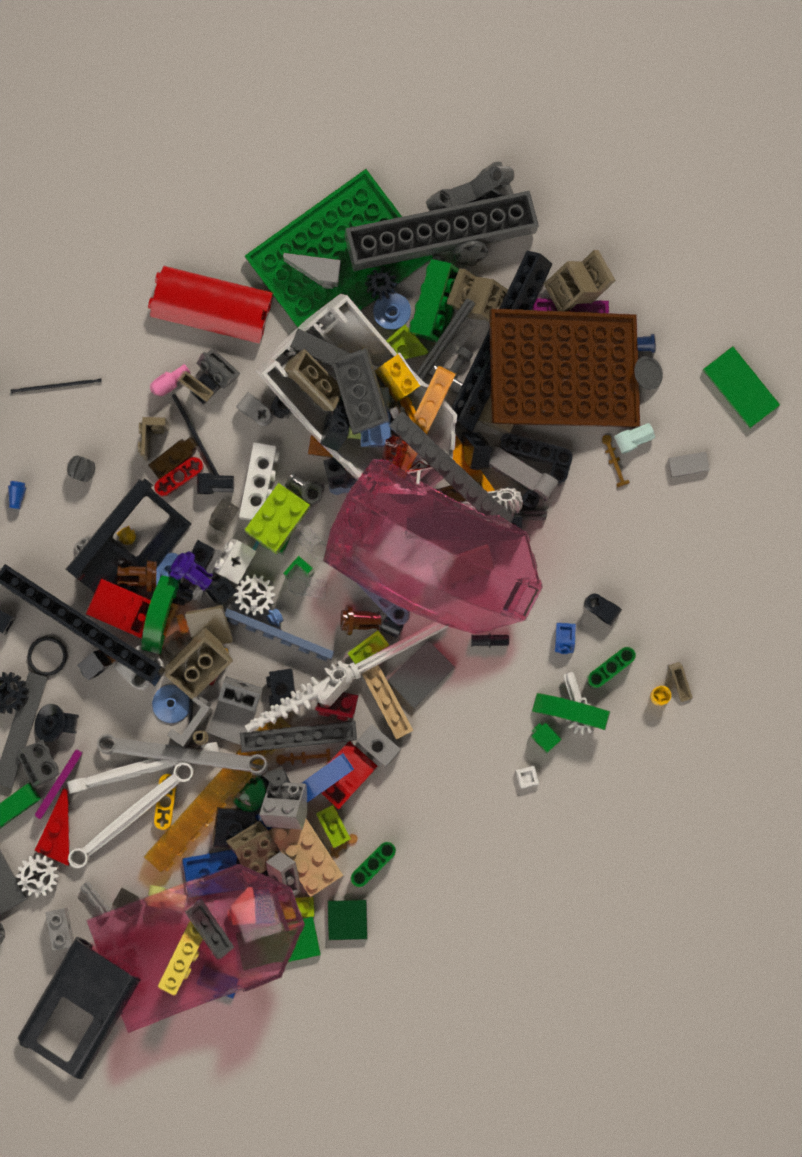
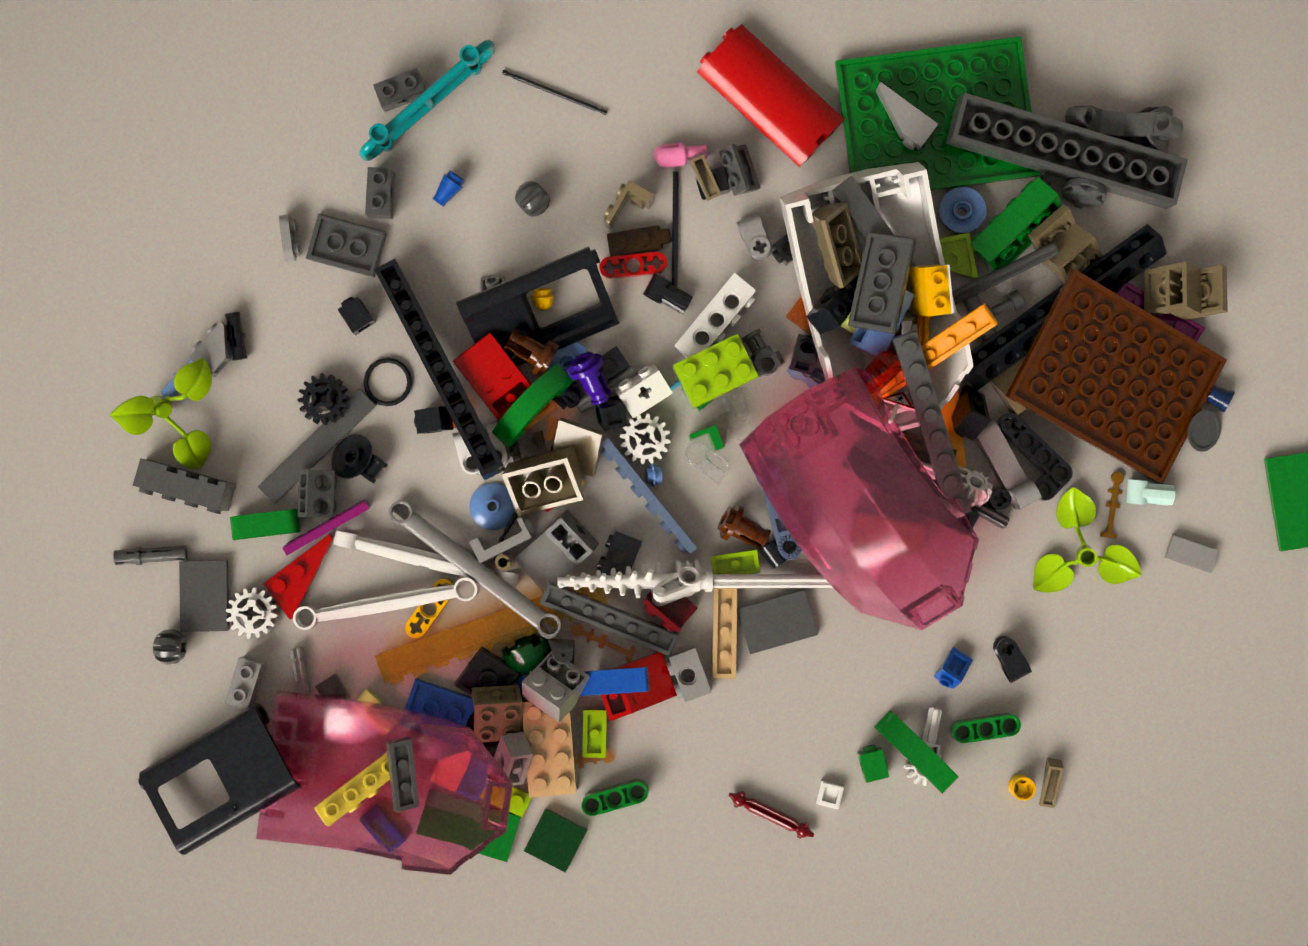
camera: 25 degrees right, 5 degrees up
(223, 515) = (658, 334): clear smoke bracket -> none
(378, 278) = (967, 182): black gear -> none
(489, 640) = (871, 626): black axle -> none
(492, 815) = (771, 815): none -> dark red wheel
(600, 532) = (1051, 571): none -> lime plant

